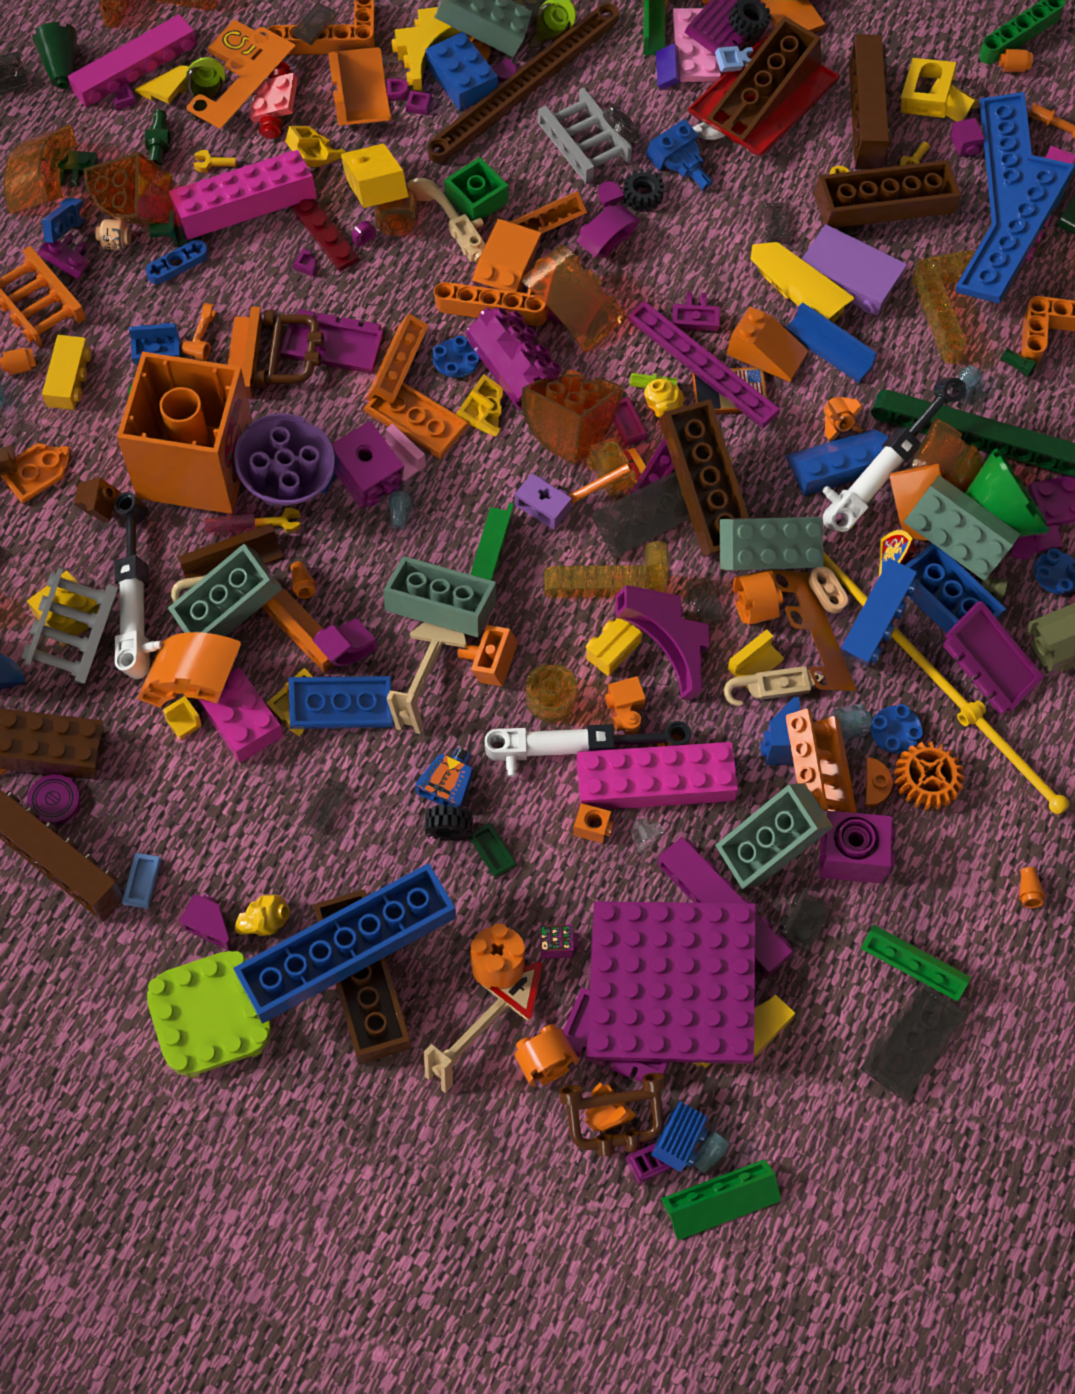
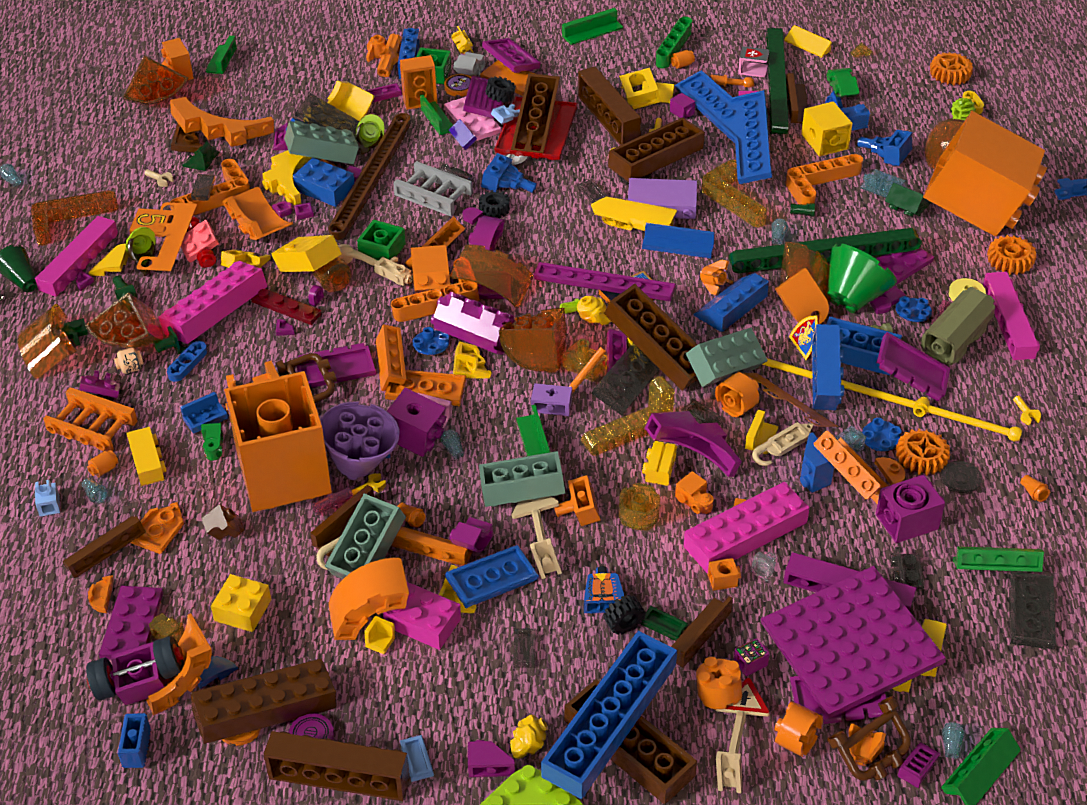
camera: 25 degrees left, 20 degrees down
(62, 219) = (87, 361): blue plate -> none
(95, 621) = (275, 596): light grey fence -> none
(131, 575) = (283, 565): white piece -> none
(211, 161) = (169, 296): yellow bar -> none
(520, 744) = (636, 548): white piece -> none
(523, 880) = (701, 629): none -> reddish brown panel
(629, 423) = (575, 333): magenta tile -> none
(680, 1137) = (927, 737): blue brick -> none
(696, 316) = (580, 258): magenta hinge -> none
(766, 345) = (637, 256): orange slope -> none
(774, 835) = (856, 519): sand green brick -> none
(829, 590) = (778, 375): light nougat plate -> none
(897, 449) = (769, 273): white piece -> none
(954, 830) = (961, 477): none -> clear smoke tile
(962, 528) = (843, 299): sand green brick -> none

